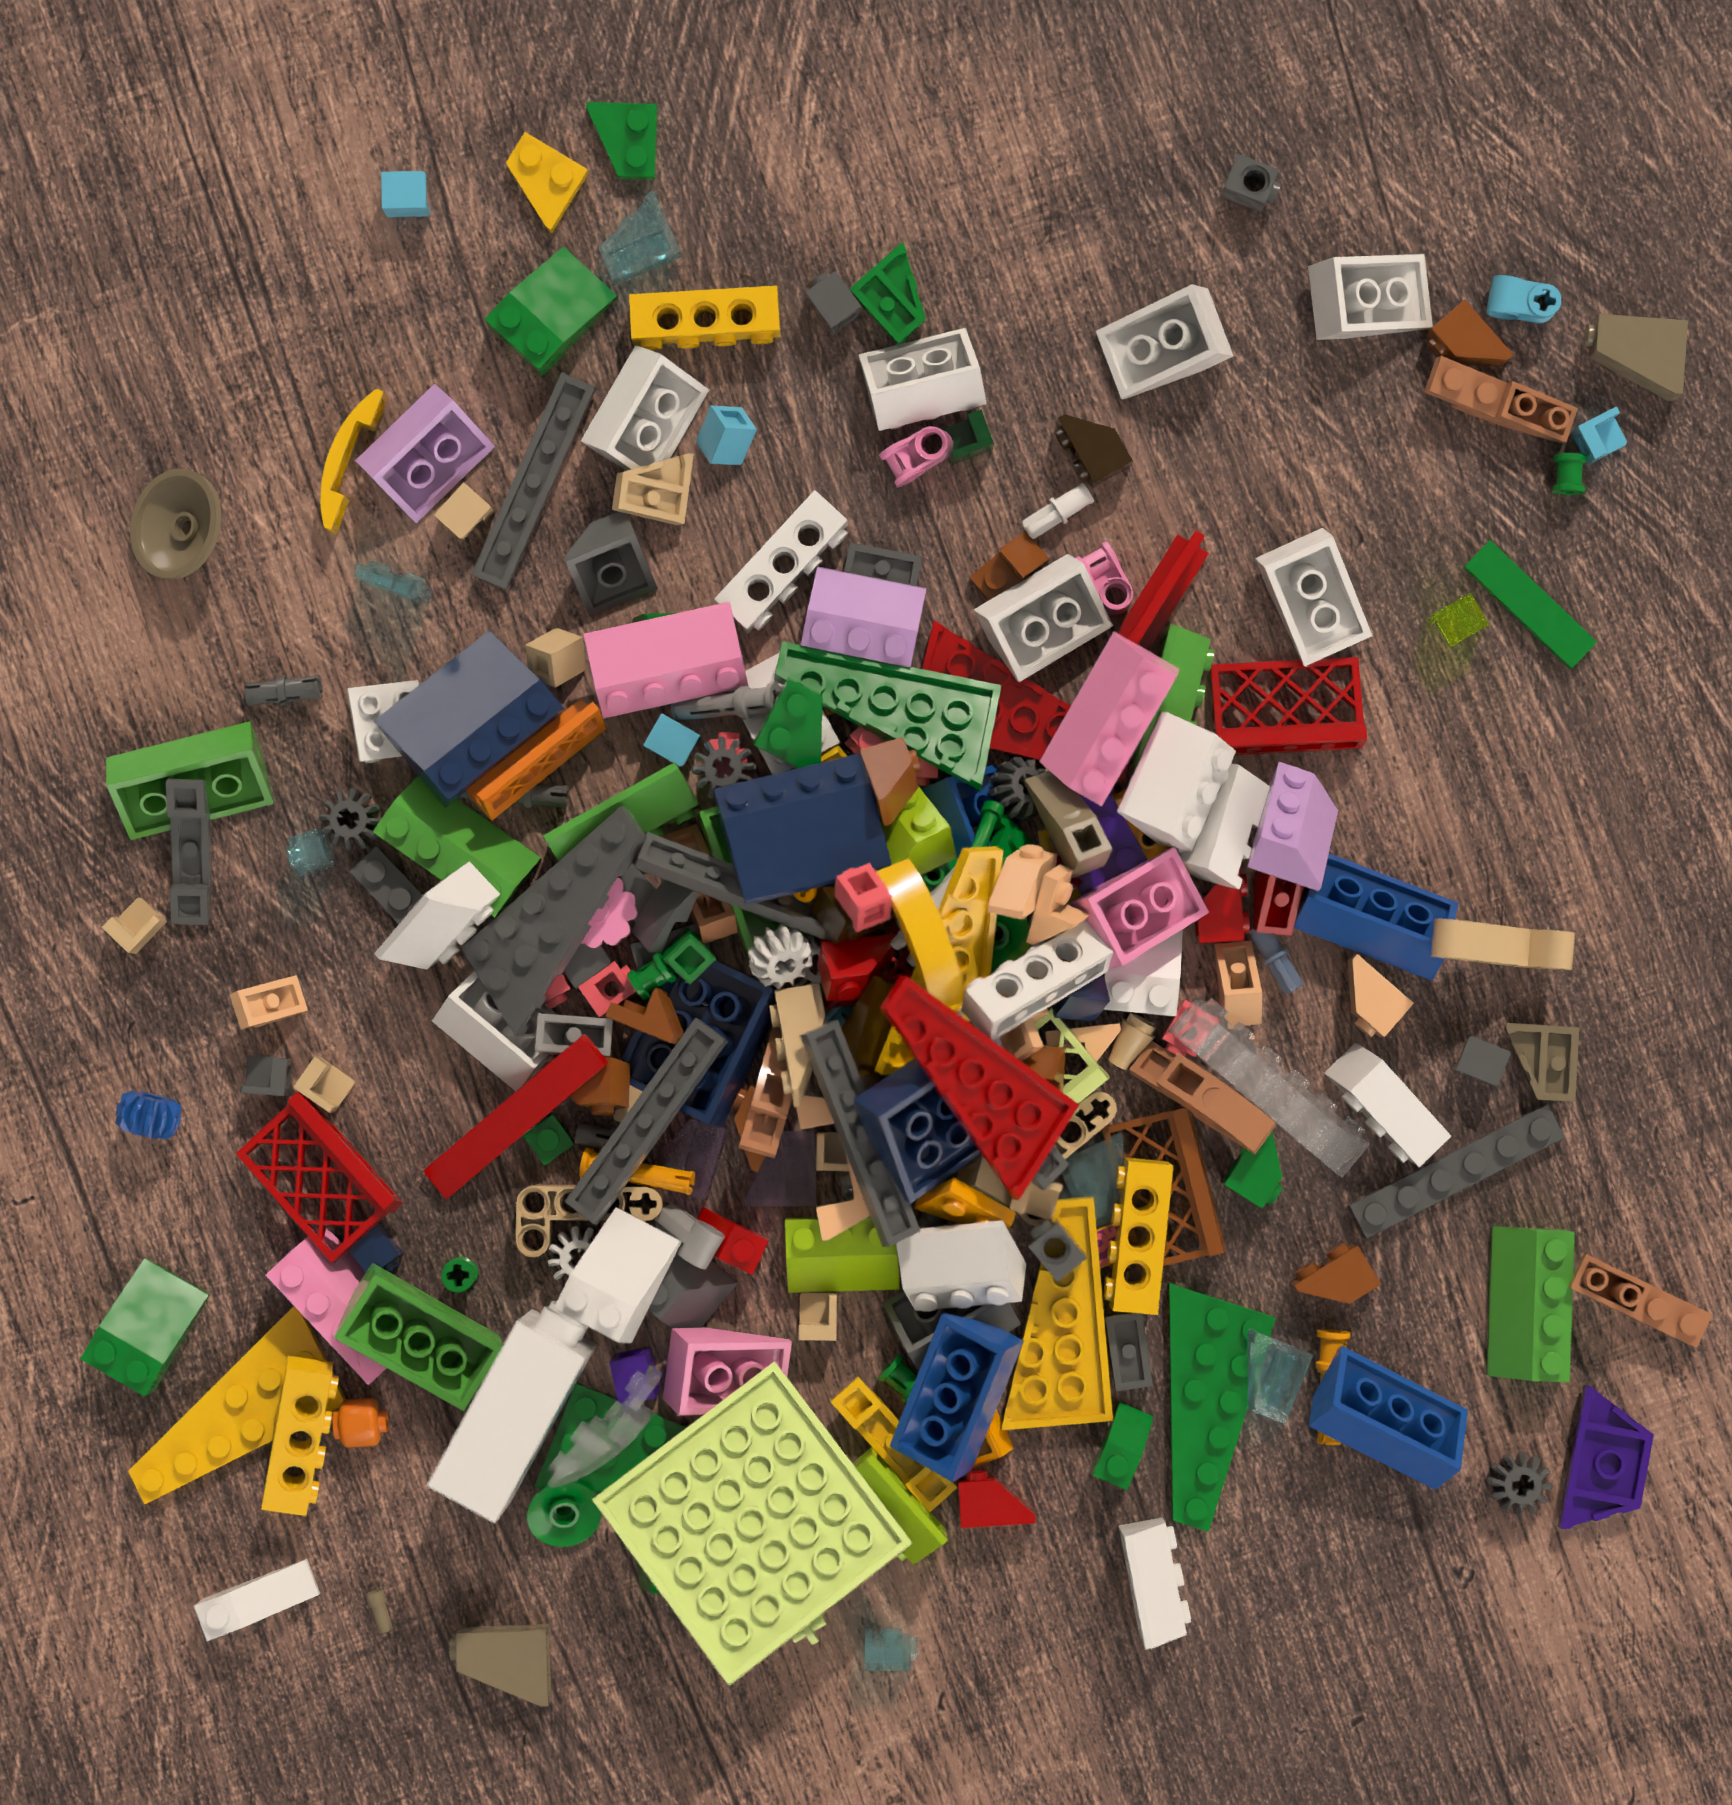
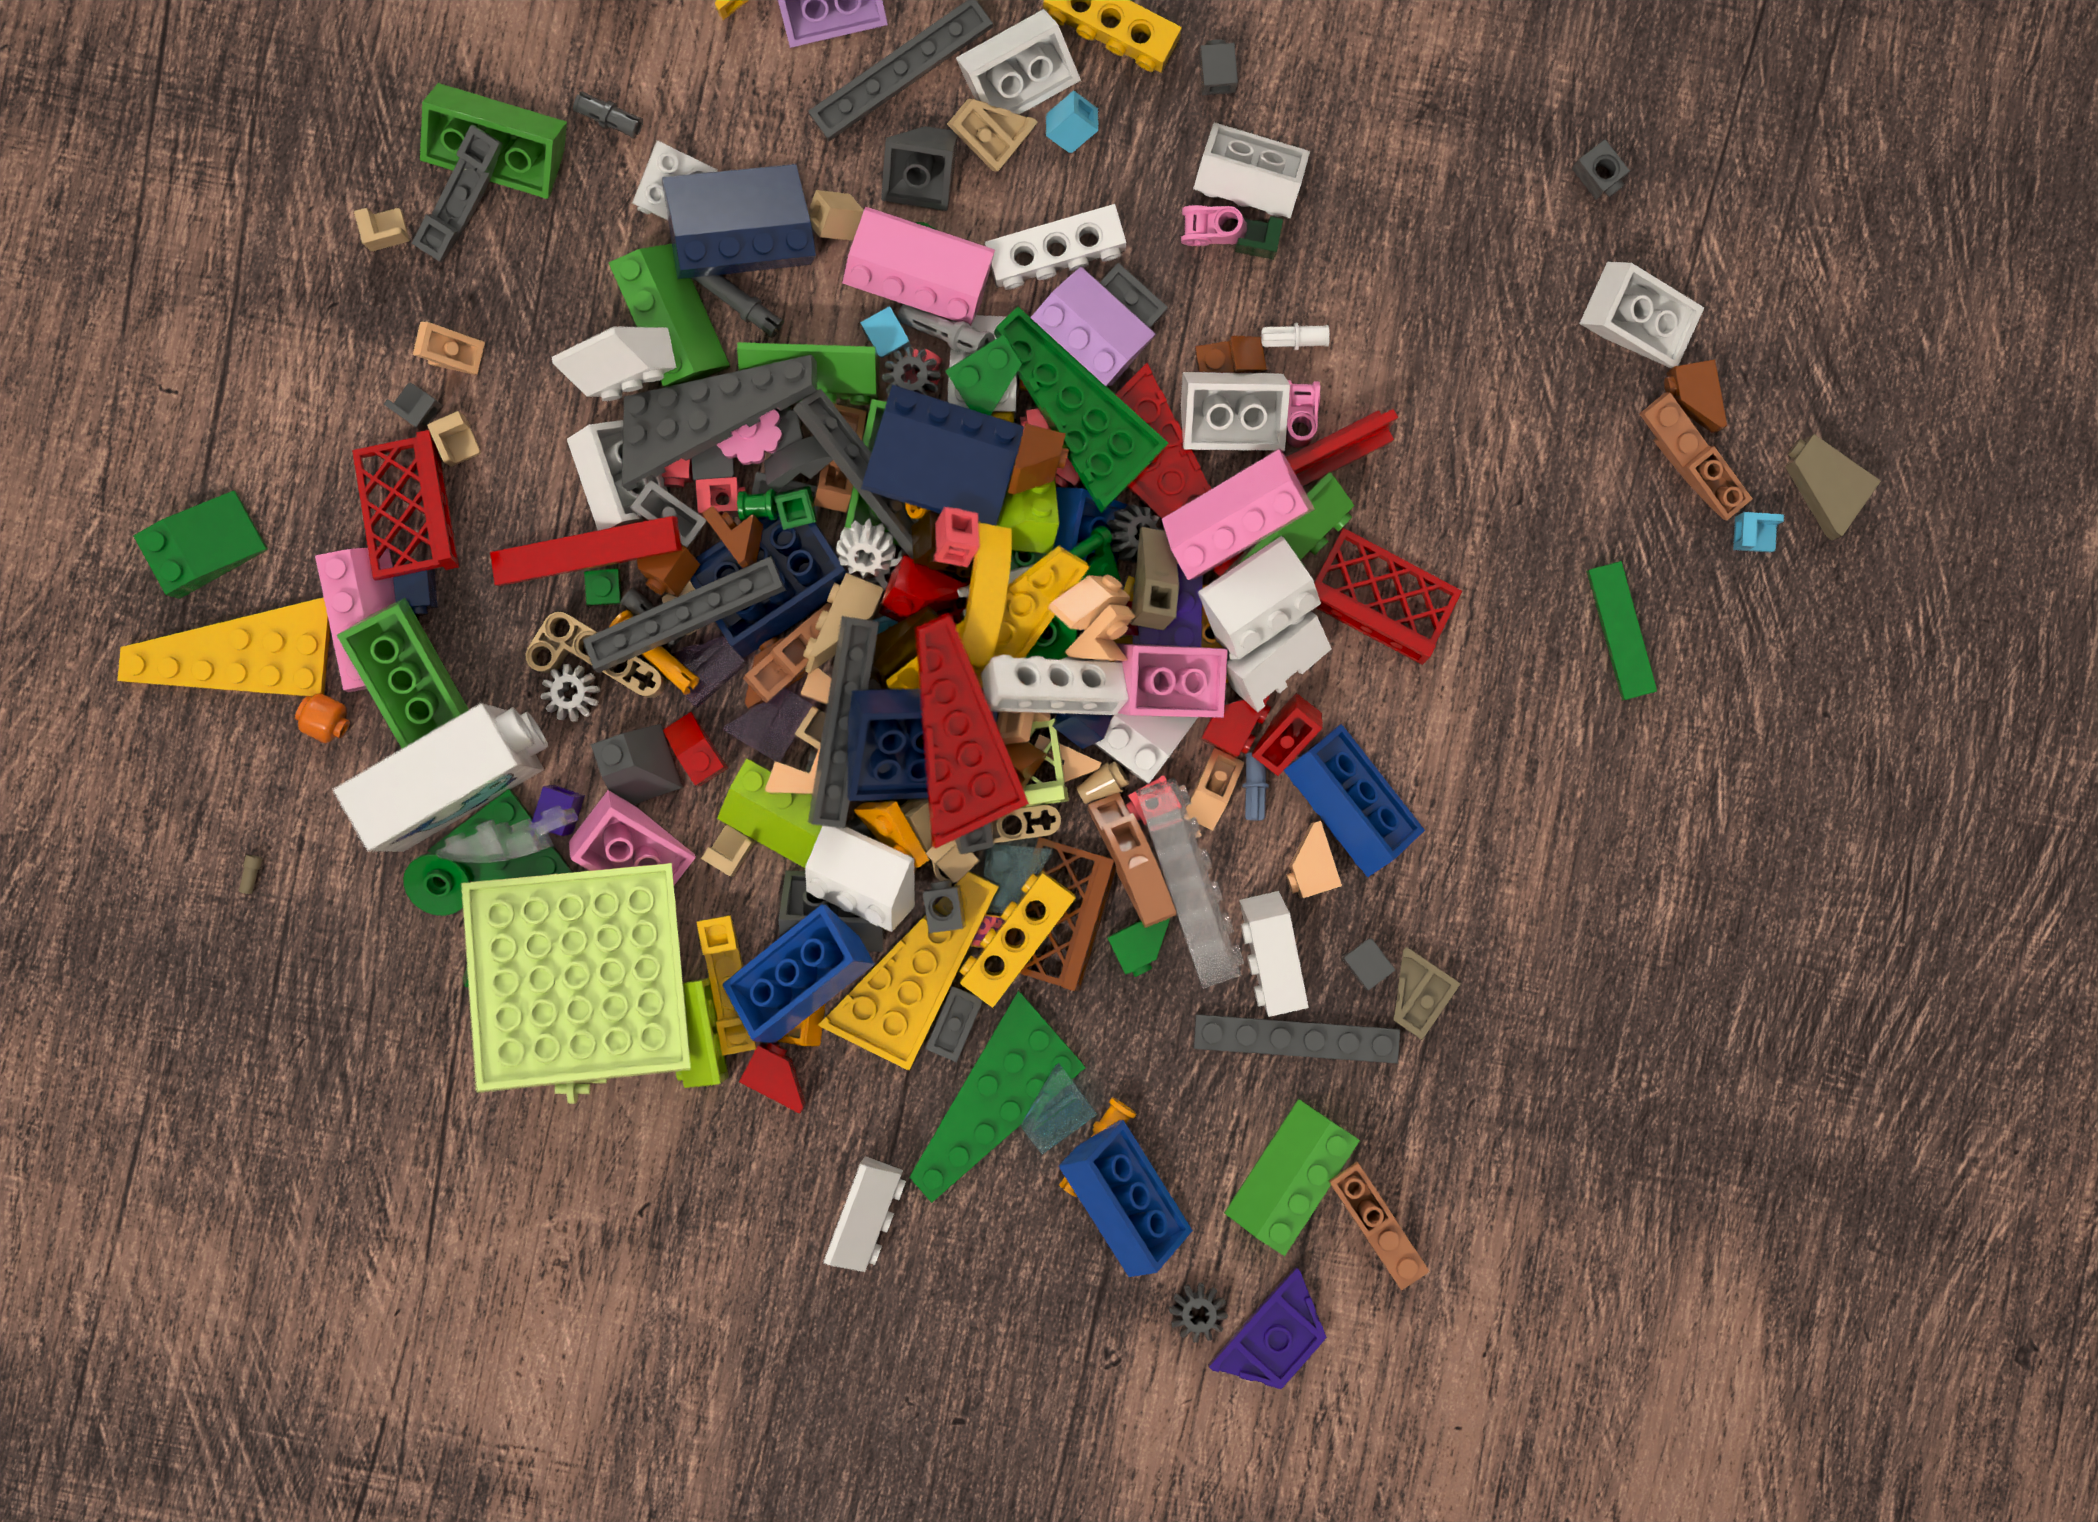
camera: 25 degrees right, 0 degrees up
(148, 1114) = (302, 379): blue gear -> none
(256, 1599) = (158, 806): white slope -> none
(294, 1493) = (228, 732): yellow brick -> none
(309, 853) = (551, 252): clear light blue brick -> none
(345, 832) = (588, 237): dark grey gear -> none
(380, 577) = (738, 74): clear light blue wing -> none
(387, 884) = (596, 307): dark grey plate -> none
(453, 1283) = (477, 643): green bush -> none
(464, 511) = (831, 58): tan panel -> none
(507, 1658) = (325, 971): dark tan slope -> none
(537, 758) = (772, 284): orange fence -> none
(618, 1276) = (588, 723): white slope -> none
(698, 1238) = (666, 728): light grey piece -> none
(889, 1650) = (626, 1143): clear light blue brick -> none
(891, 296) = (1266, 91): green wing -> none
(899, 1377) = (762, 935): green bush -> none
(1095, 447) = (1354, 304): dark brown slope -> none
(1122, 1446) = (904, 1095): green slope -> none
(1164, 341) = (1459, 254): white slope -> none
(1294, 828) = (1331, 692): lavender slope -> none
(1314, 596) = (1456, 522): white slope -> none
(1339, 1278) = (1155, 1067): dark orange slope -> none
(1459, 620) = (1559, 608): clear neon green panel -> none
(1502, 945) = (1438, 881): tan beam -> none
(1516, 299) = (1756, 386): medium azure piece -> none
(1569, 474) = (1714, 546): green bush -> none

